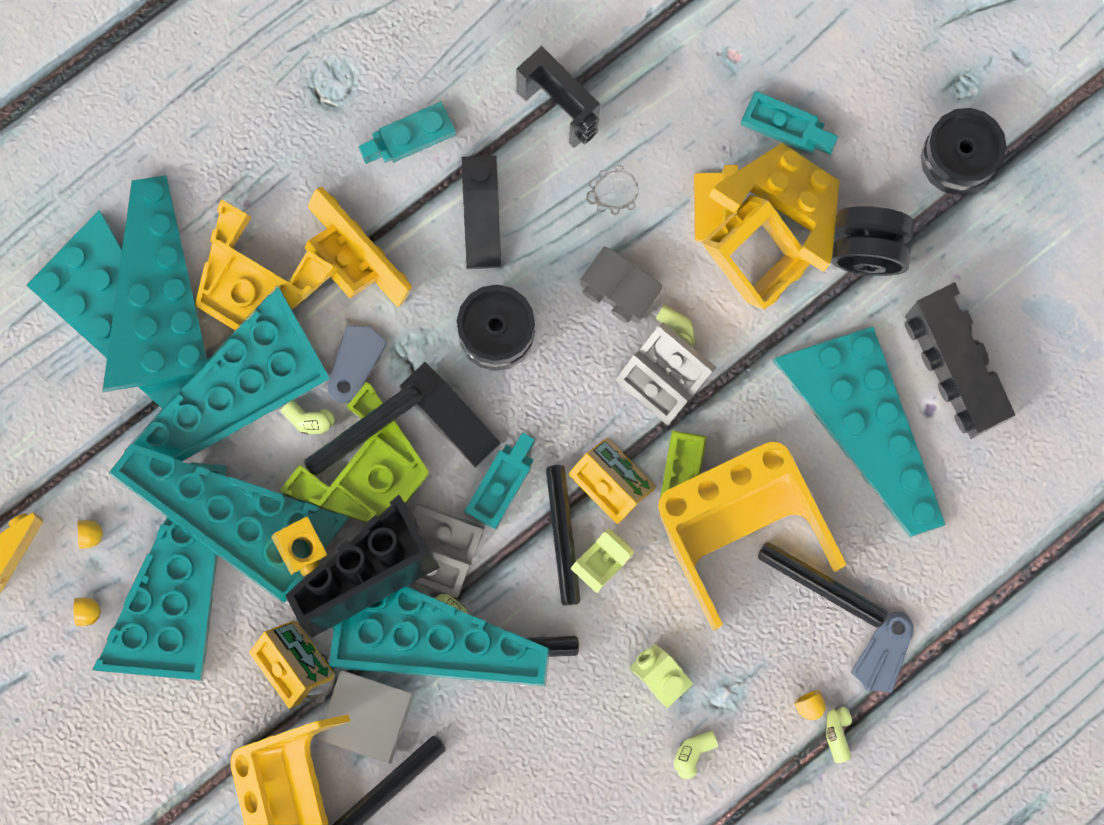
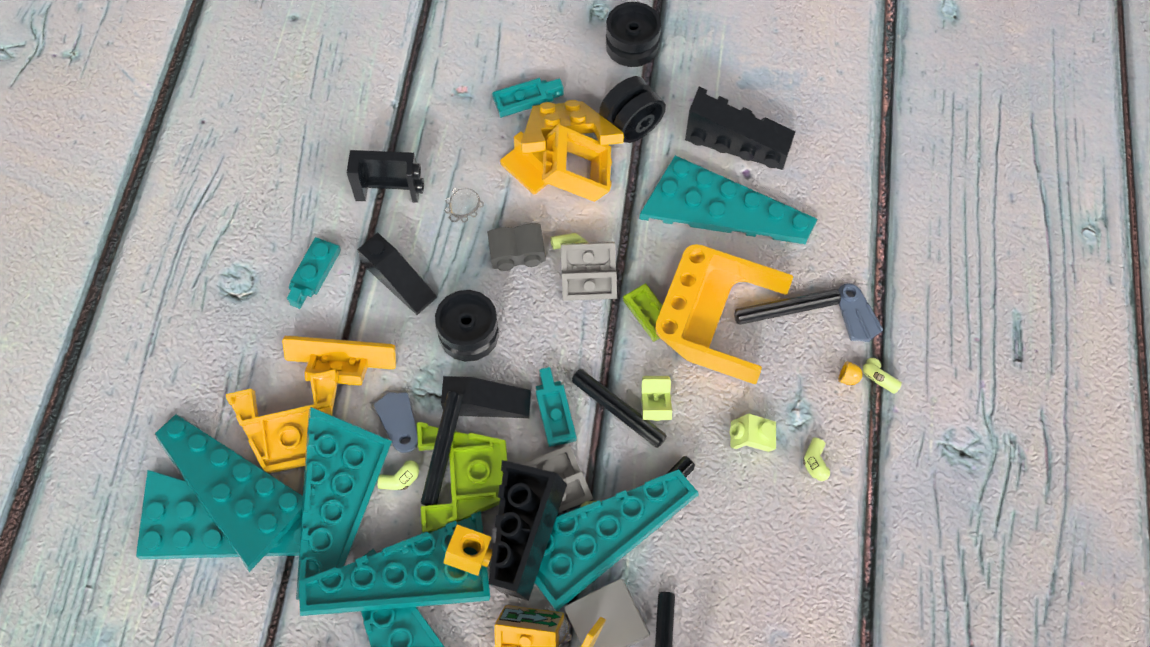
camera: 40 degrees left, 15 degrees down
(611, 480) = (616, 354): panel -> none

